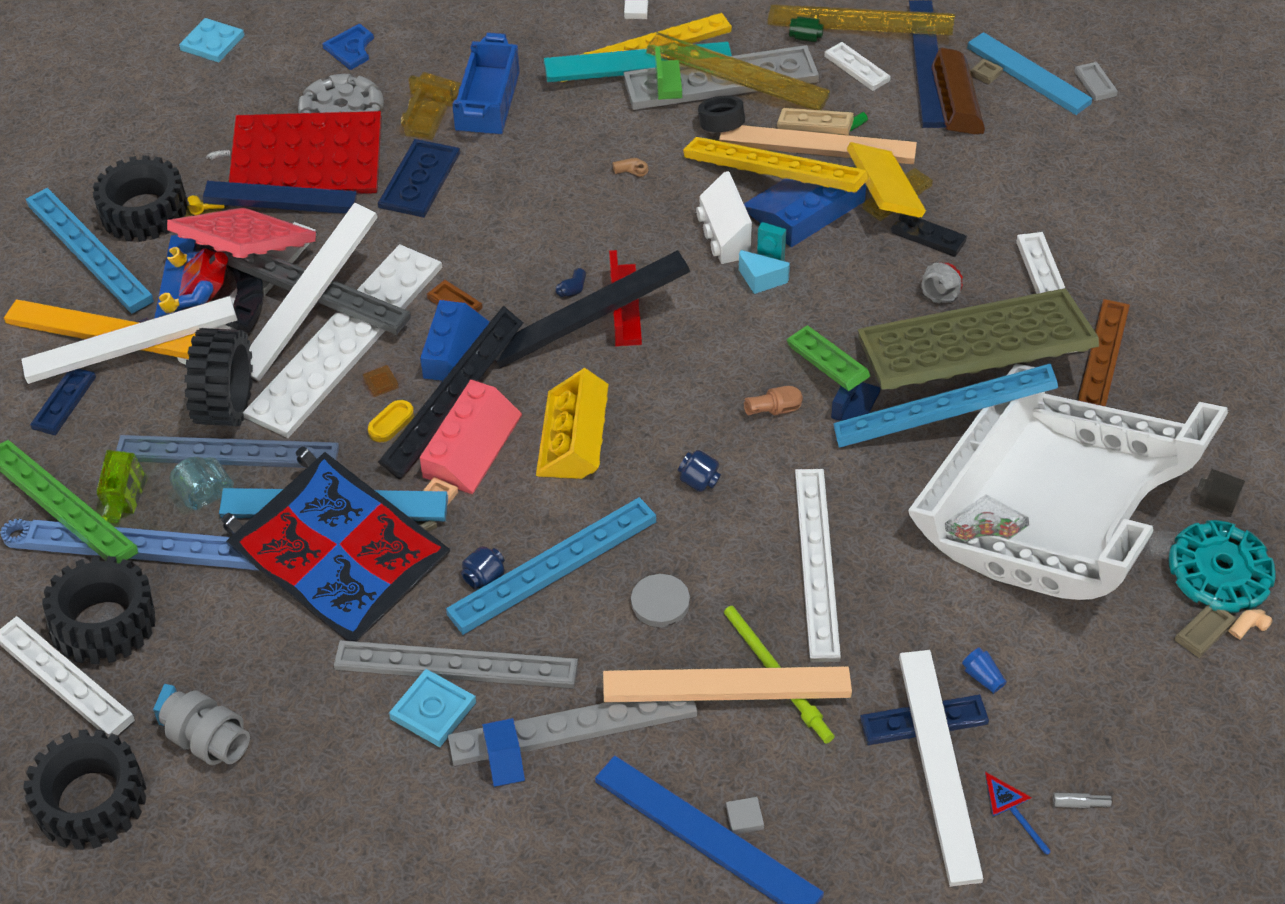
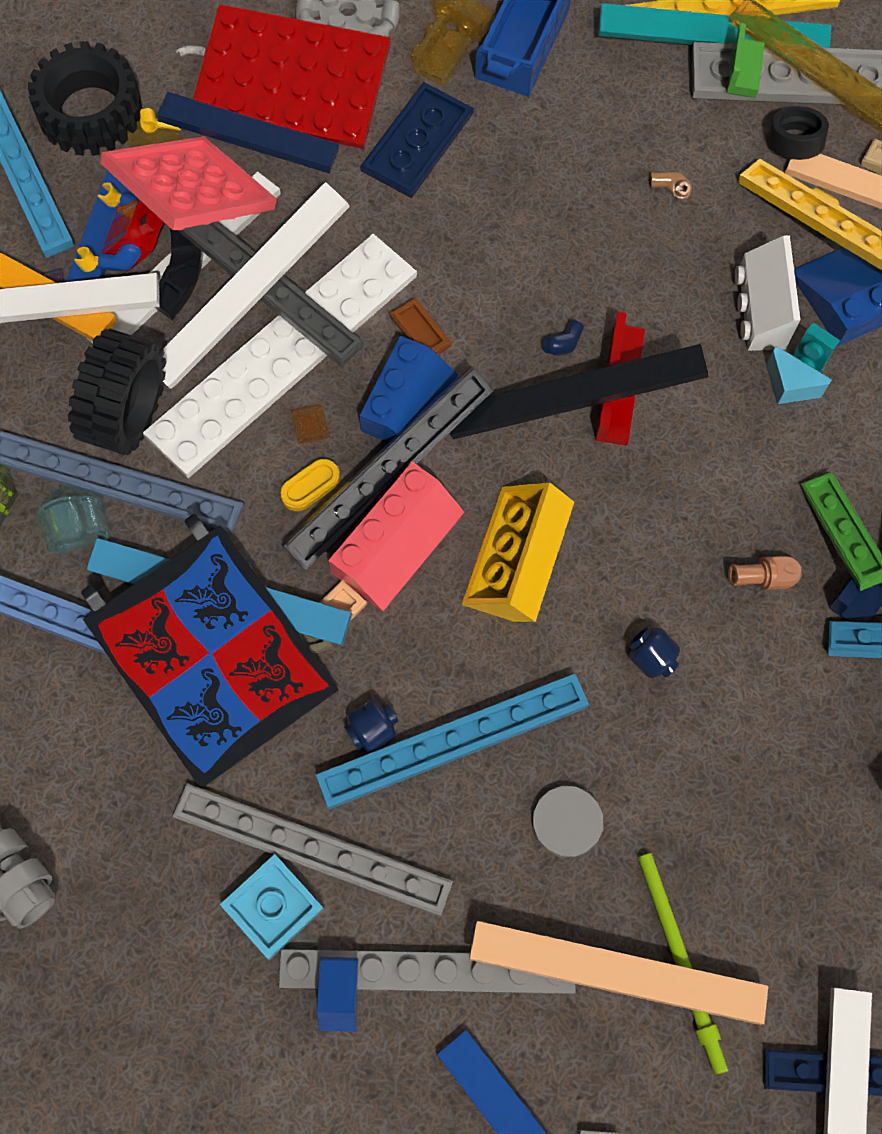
camera: 10 degrees right, 20 degrees up
(817, 566) = (763, 820): white tile -> none

